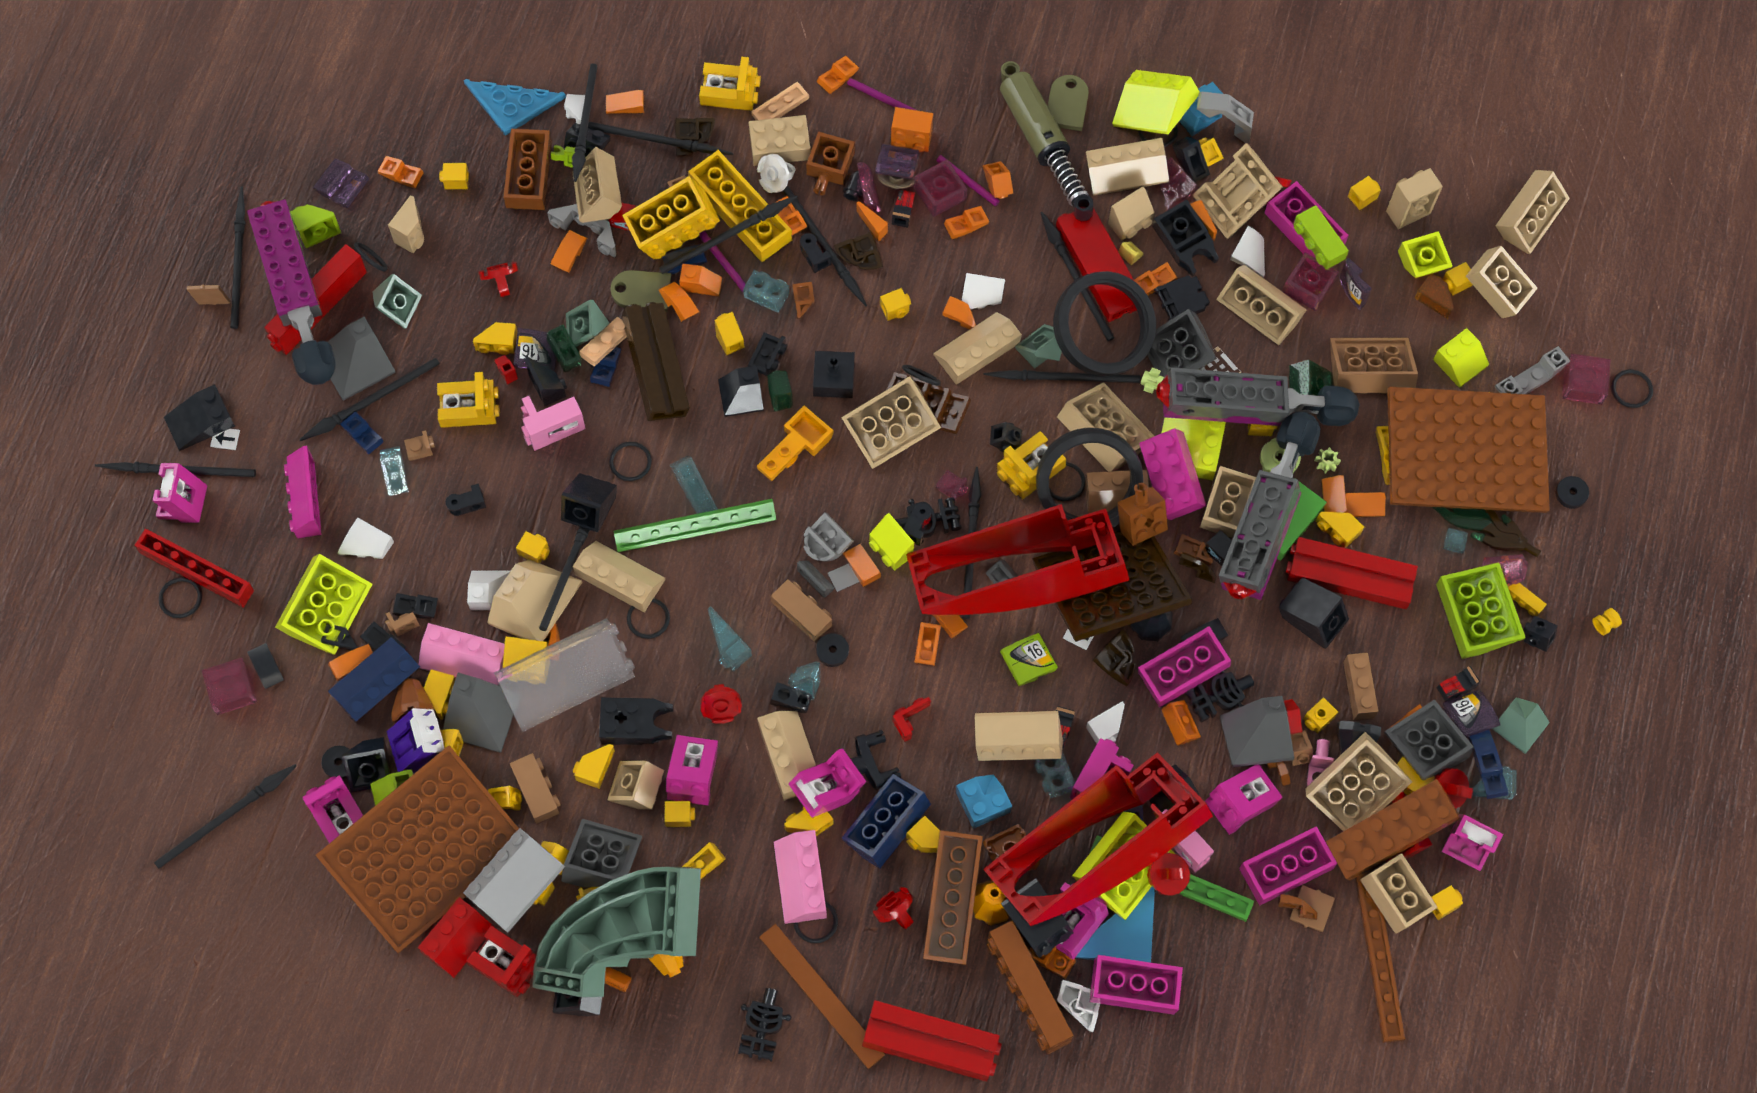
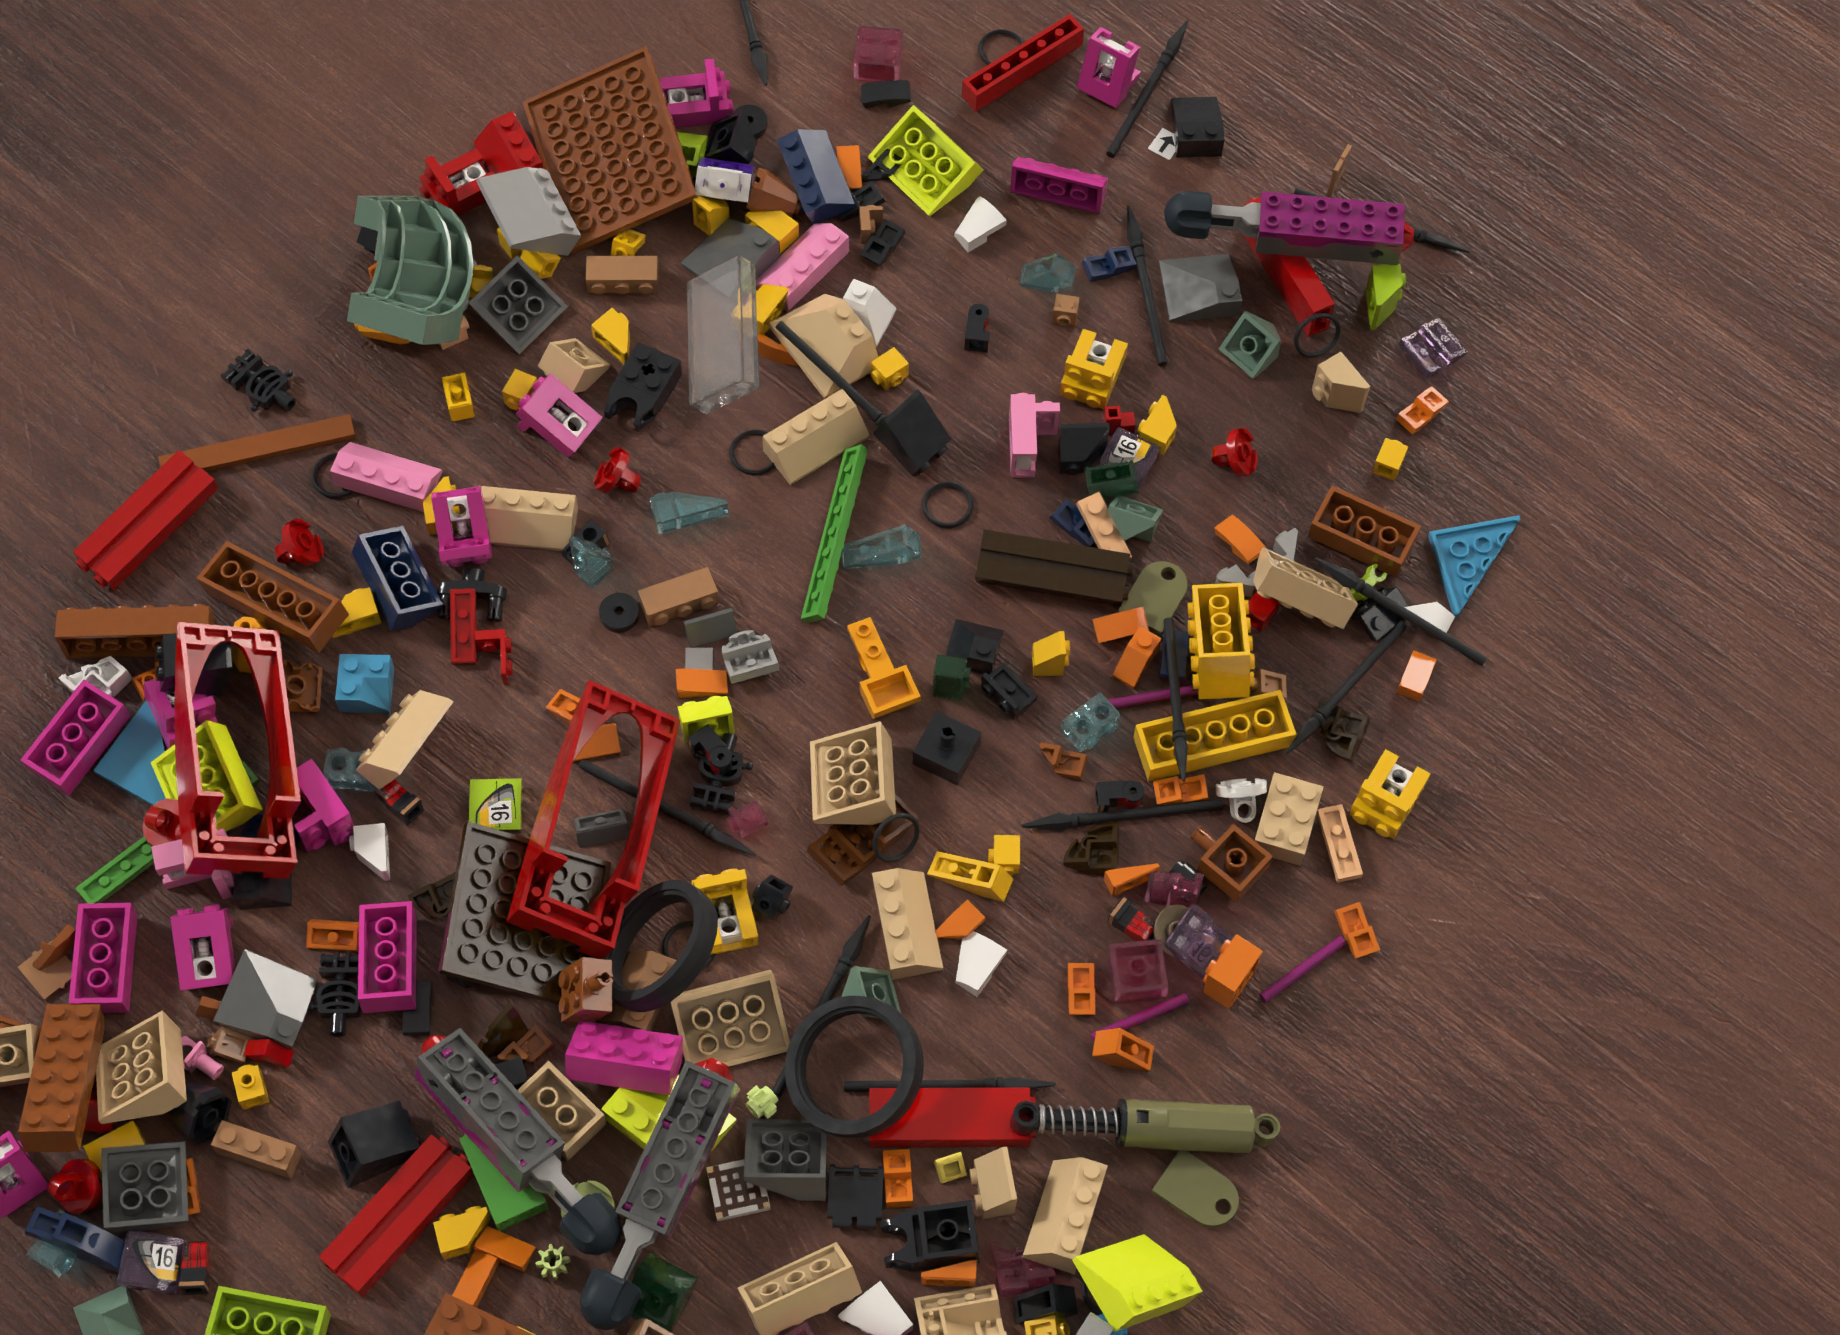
camera: 115 degrees right, 5 degrees down
(902, 751) = (463, 626): none -> red tile
(922, 321) = (971, 875): none -> yellow slope

